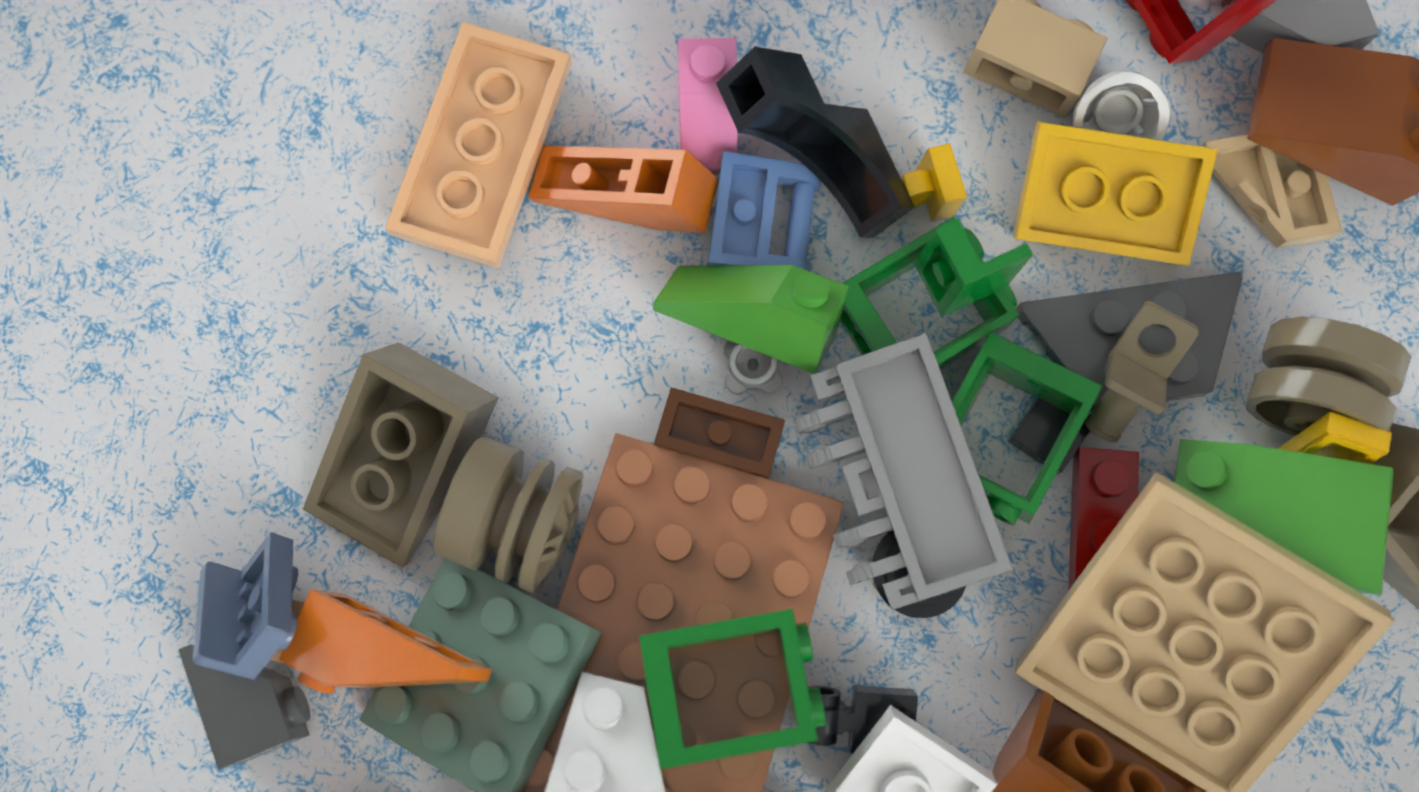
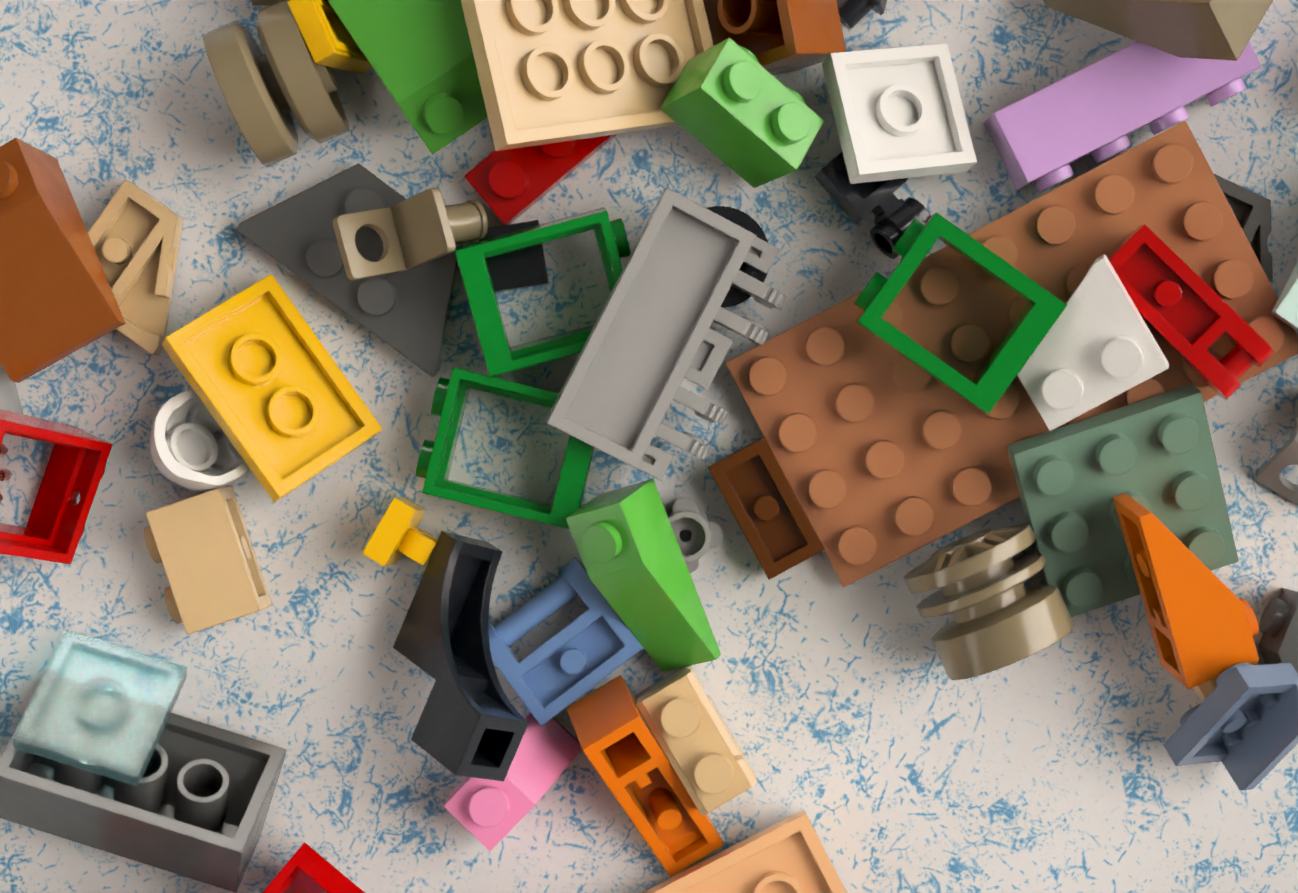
camera: 130 degrees left, 10 degrees up
(396, 450) = (1019, 737): dark tan slope -> none
(614, 239) = (696, 739): none -> tan brick
(956, 273) = (486, 443): green panel -> none
(1012, 679) = (742, 113): none -> bright green brick

